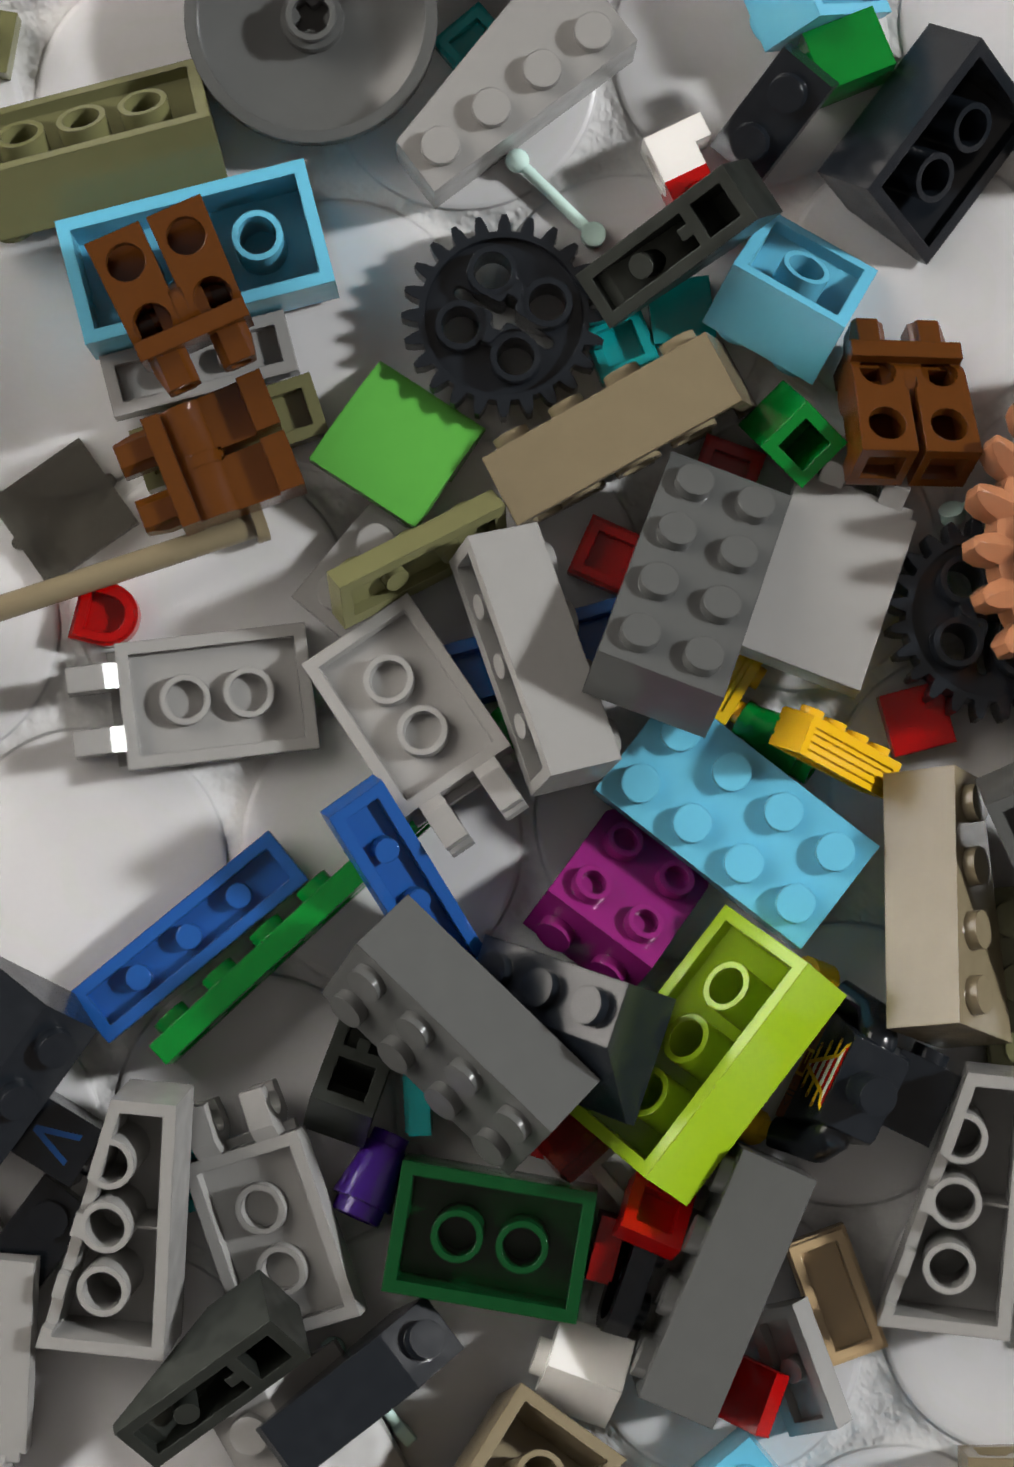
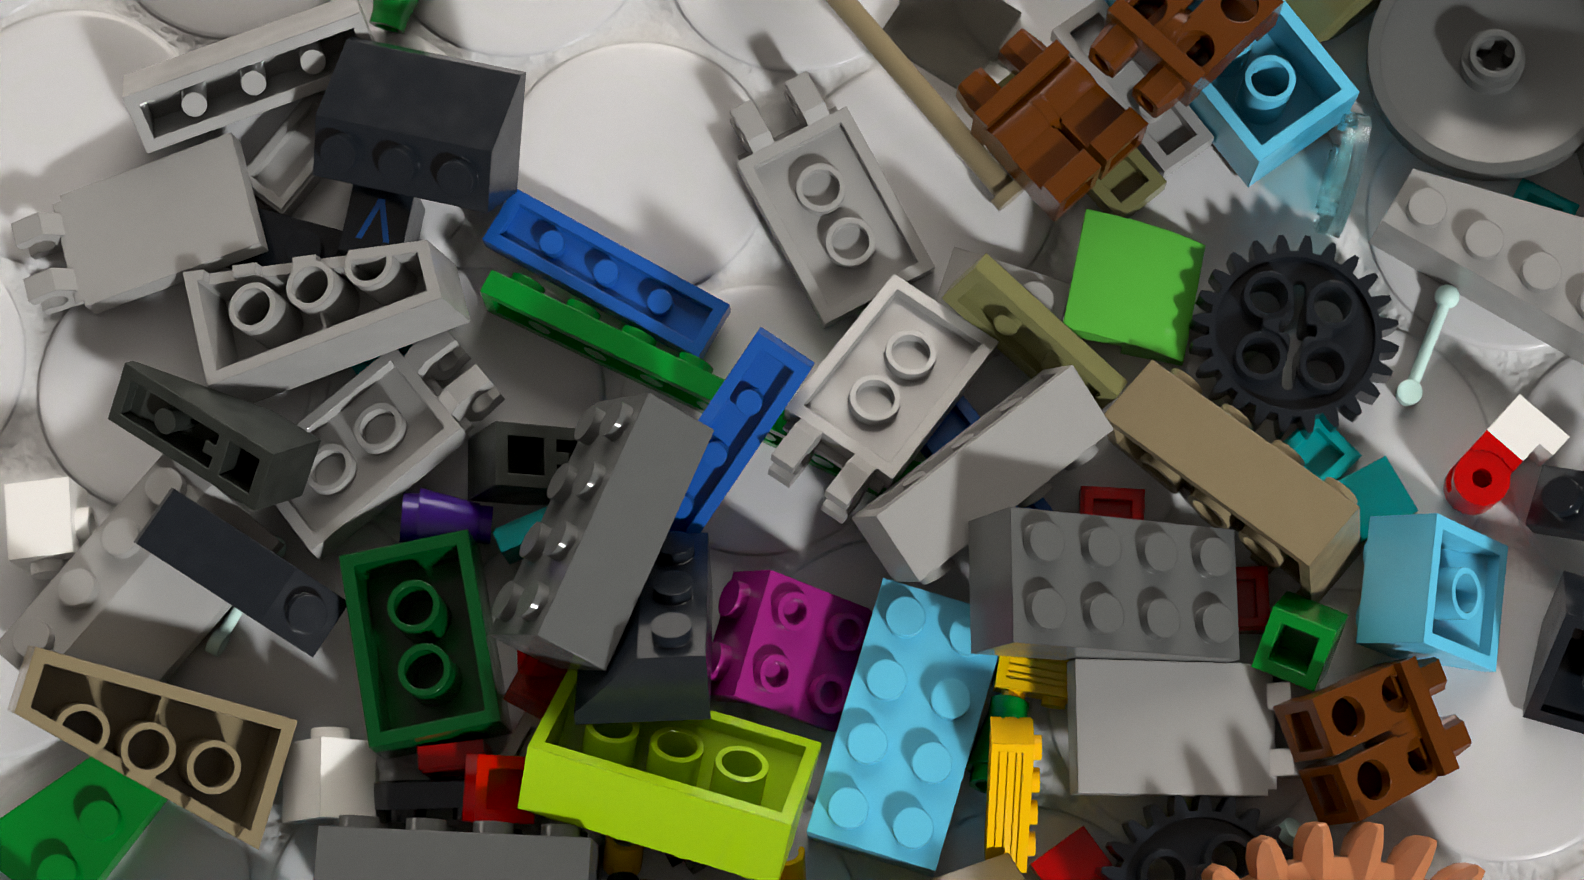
camera: 75 degrees right, 10 degrees down
(105, 617) = (869, 95): red tile -> none
(372, 206) = (1342, 174): none -> clear light blue tile
(679, 241) = (1440, 460): pearl dark grey slope -> none

